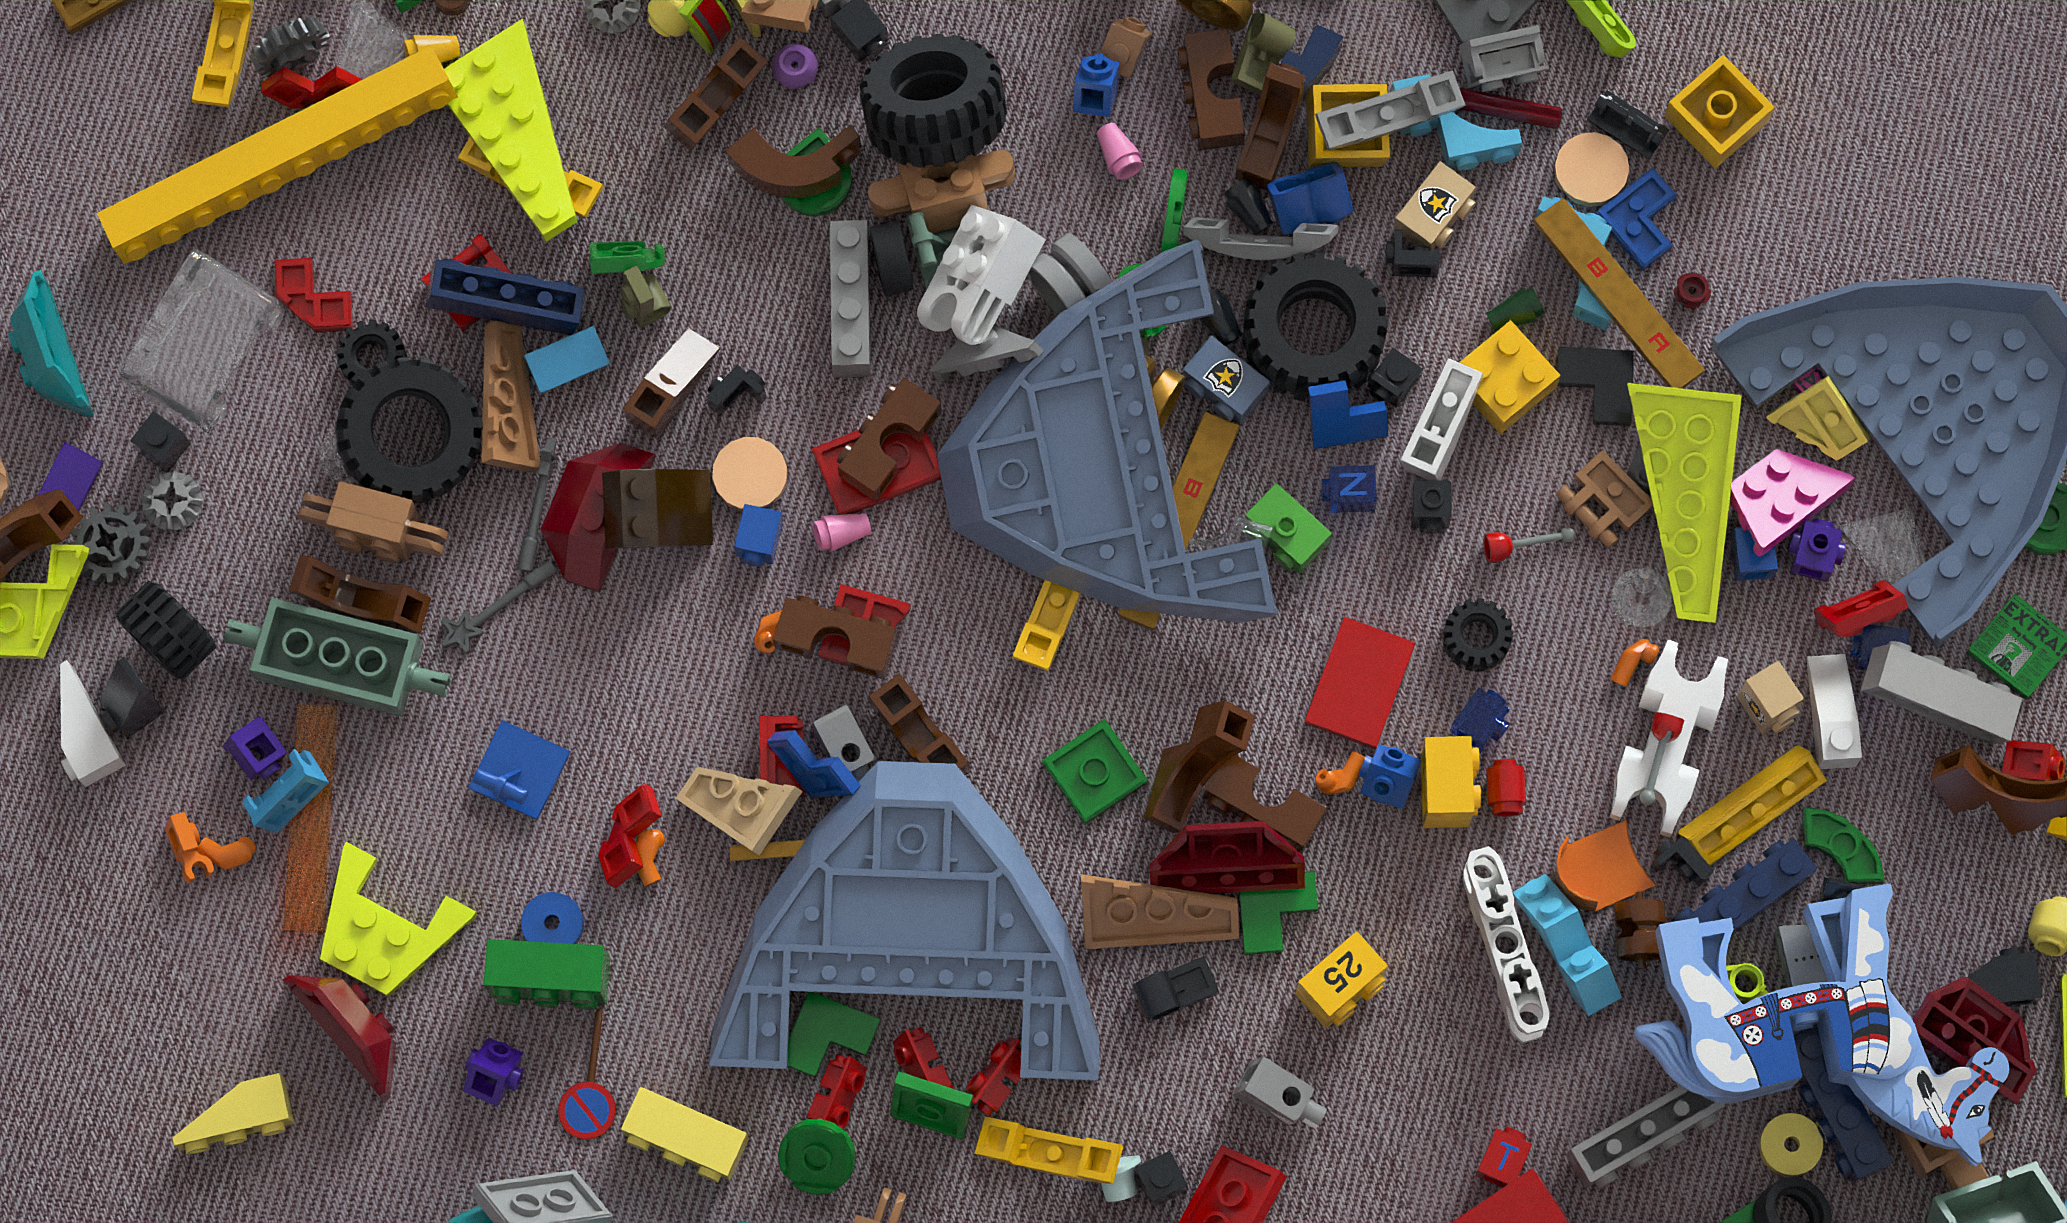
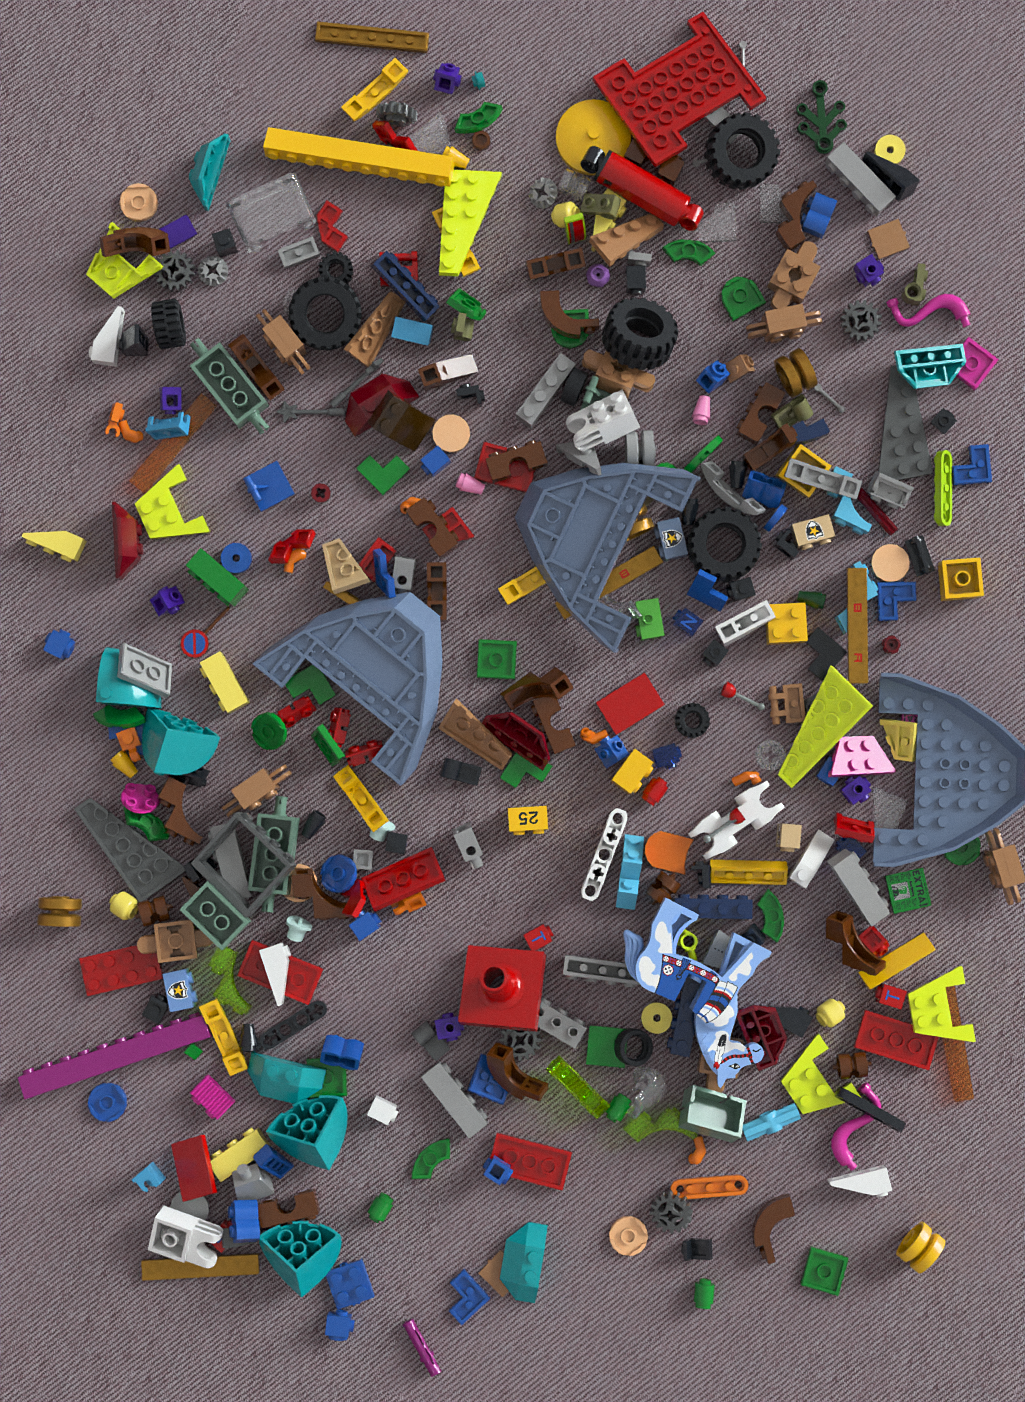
camera: 35 degrees right, 10 degrees up
(291, 372) = (298, 252): none -> light grey plate
(608, 708) = (321, 487): none -> dark red bush
(694, 623) = (383, 478): none -> green tile
(1361, 228) = (775, 518): none -> blue piece

